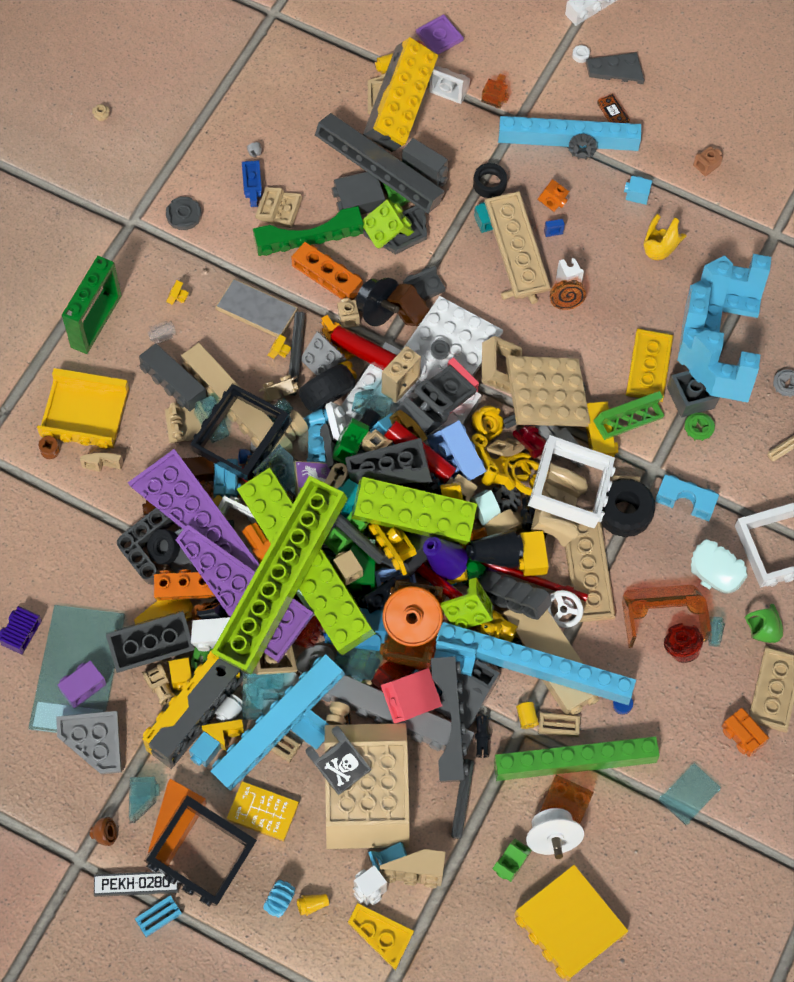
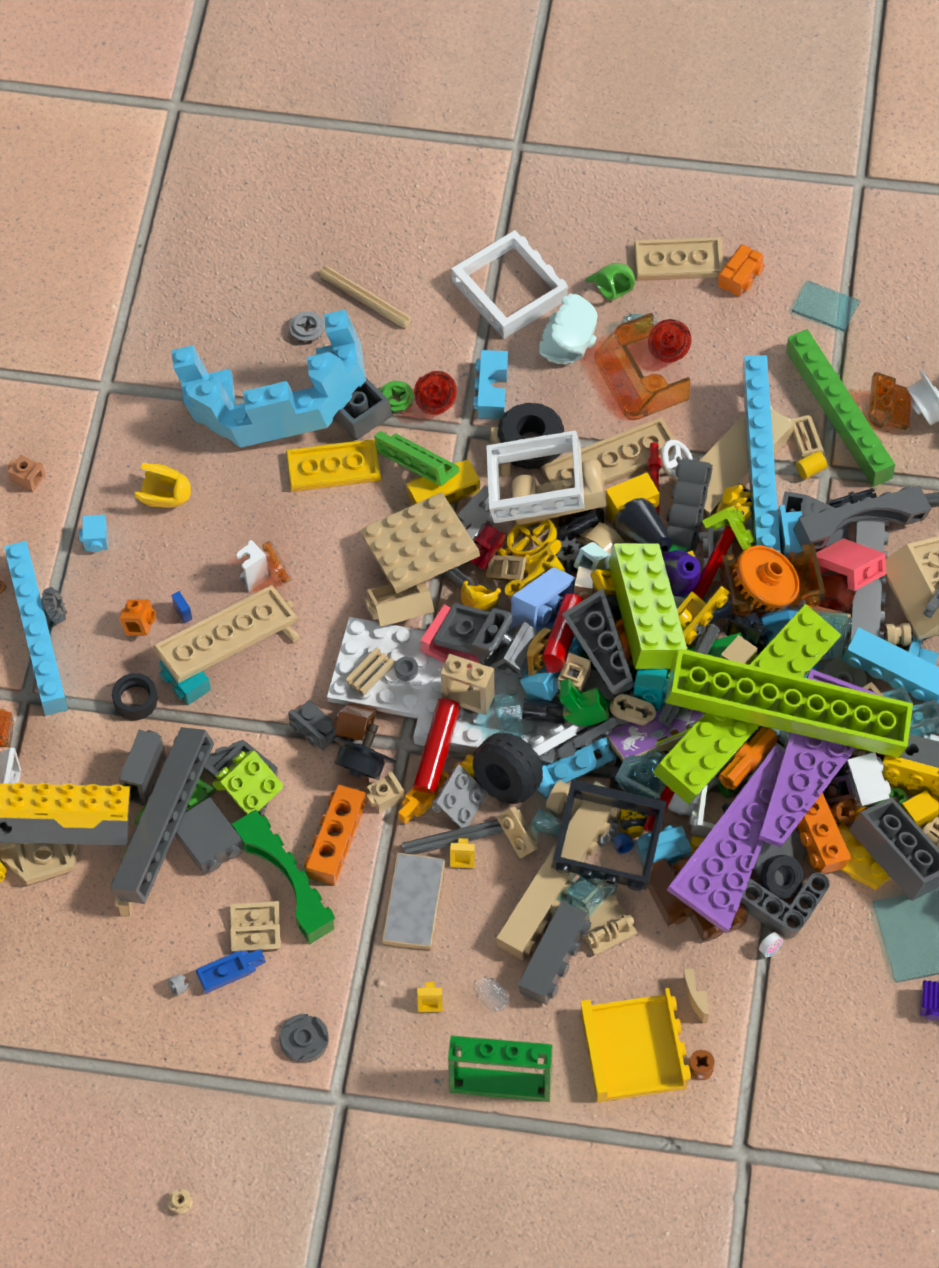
camera: 105 degrees left, 5 degrees down
(118, 525) = (770, 944): none -> white tile
(439, 313) = (364, 665): none -> tan tile
(687, 449) = (435, 392): none -> clear red cone

